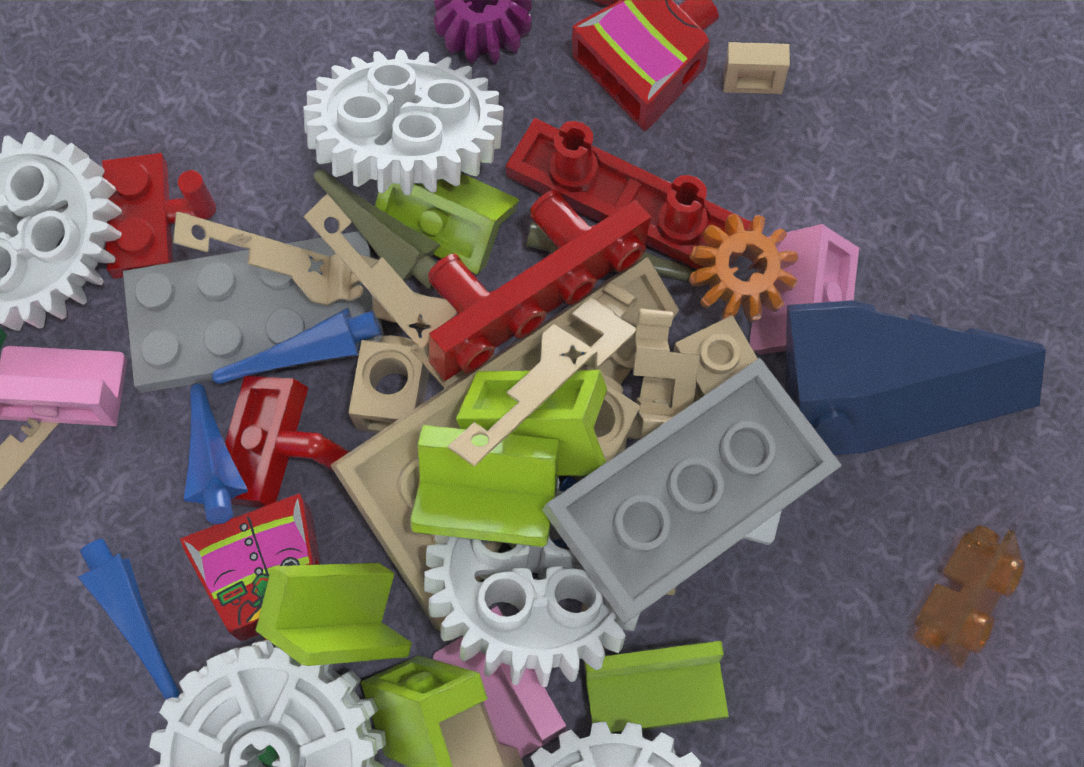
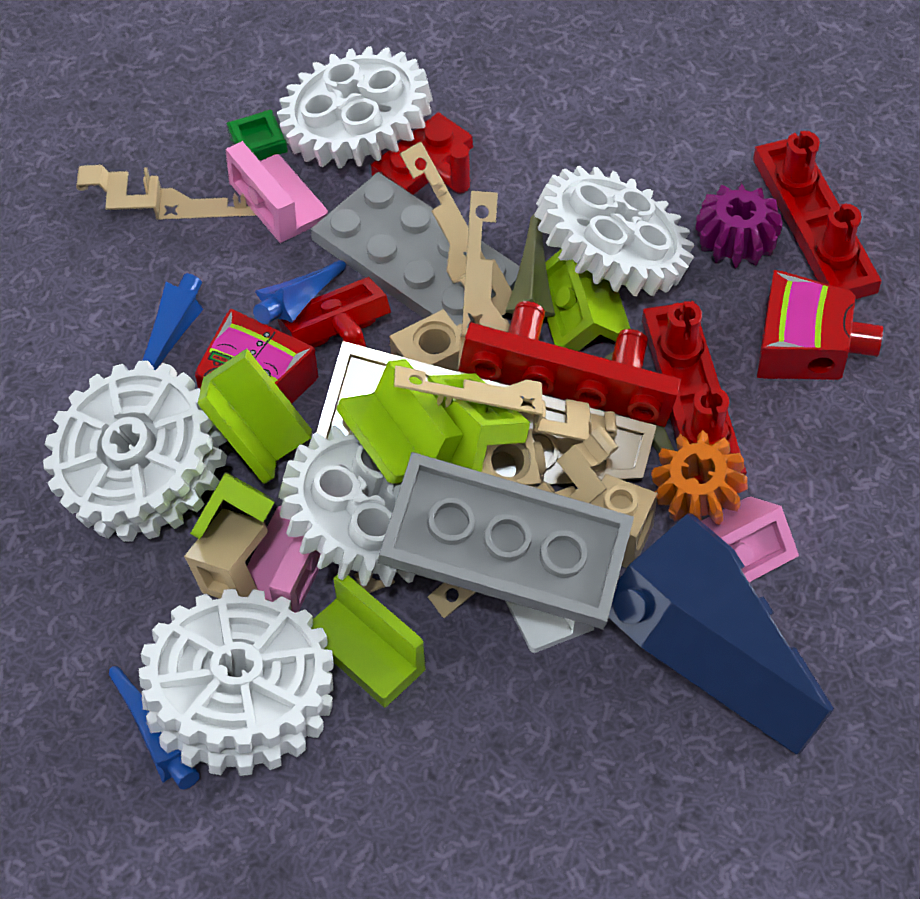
camera: 50 degrees right, 15 degrees down
(329, 339) = (425, 292): blue piece -> none
(756, 68) = (864, 399): tan tile -> none
(965, 618) = (627, 799): clear orange hinge -> none

